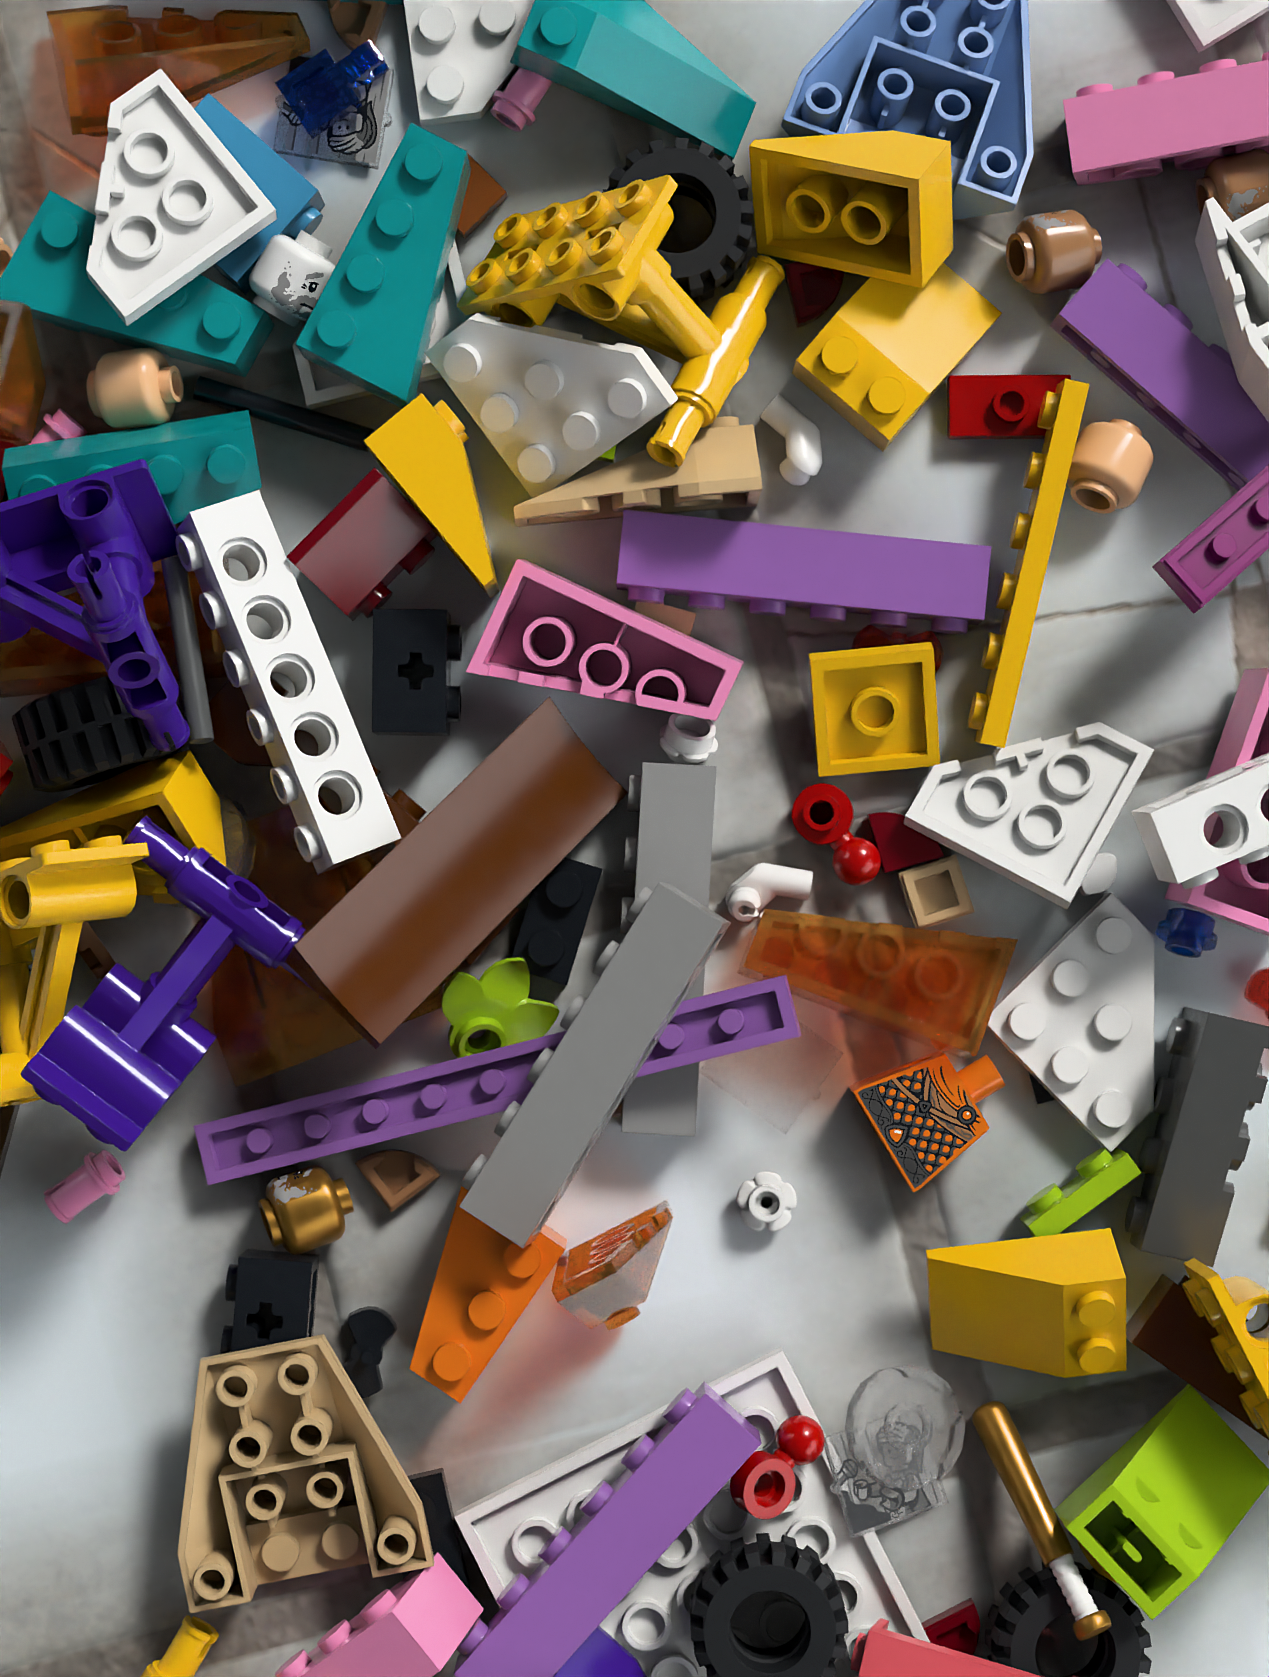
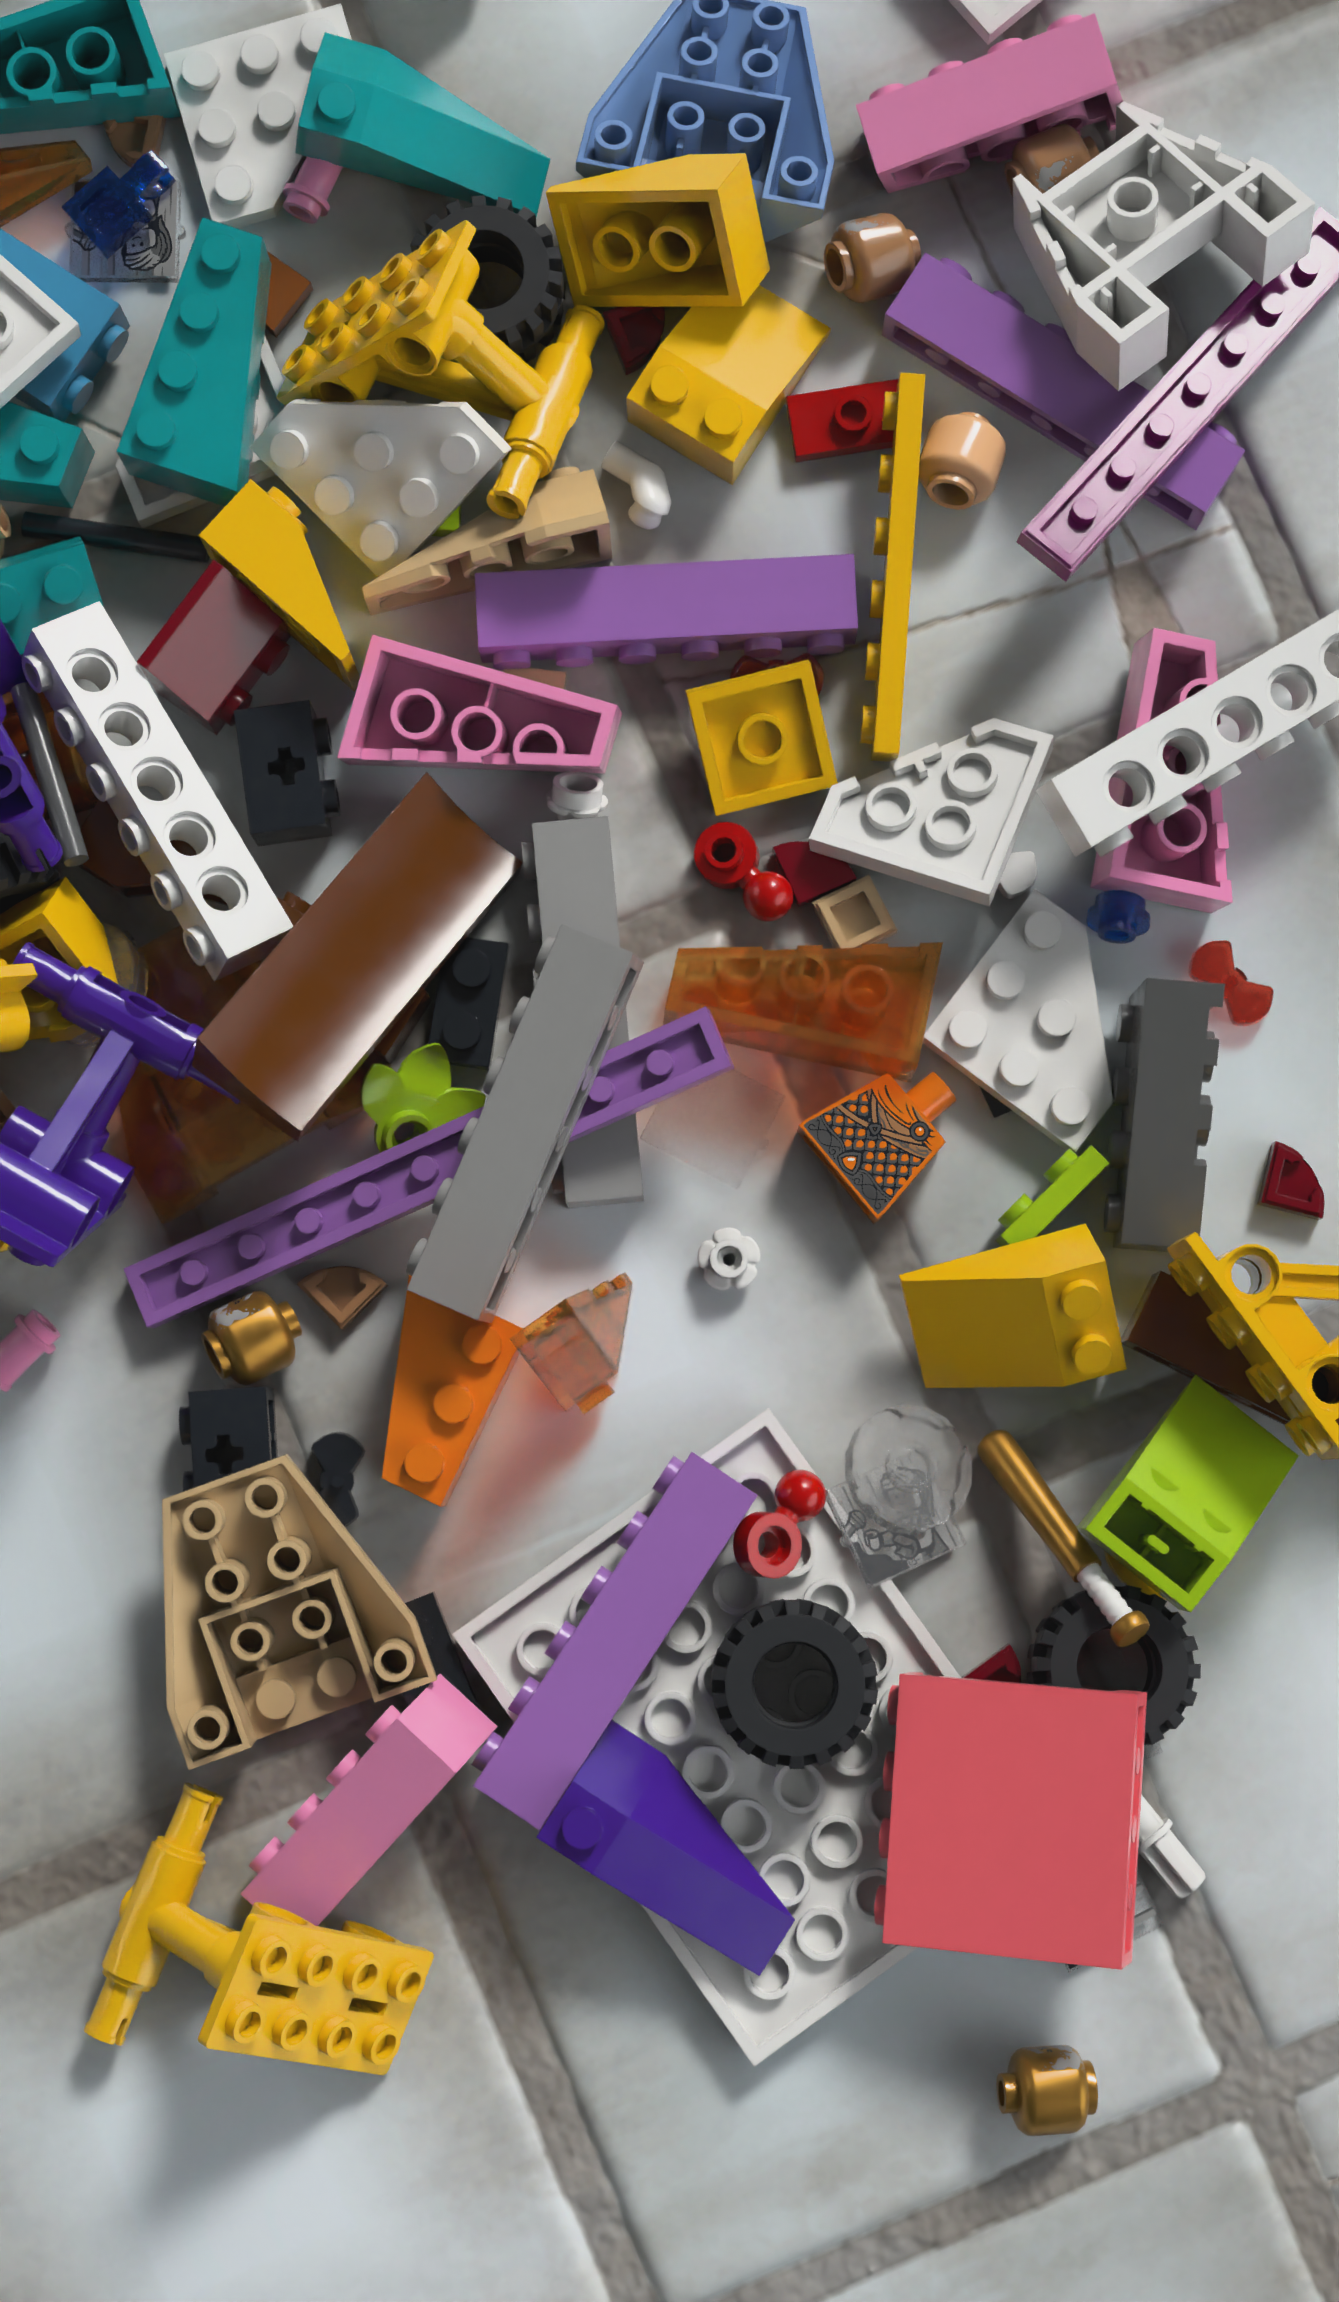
camera: 10 degrees left, 5 degrees down
(291, 276) = (103, 391): white head -> none
(762, 885) = (680, 931): white arm -> none

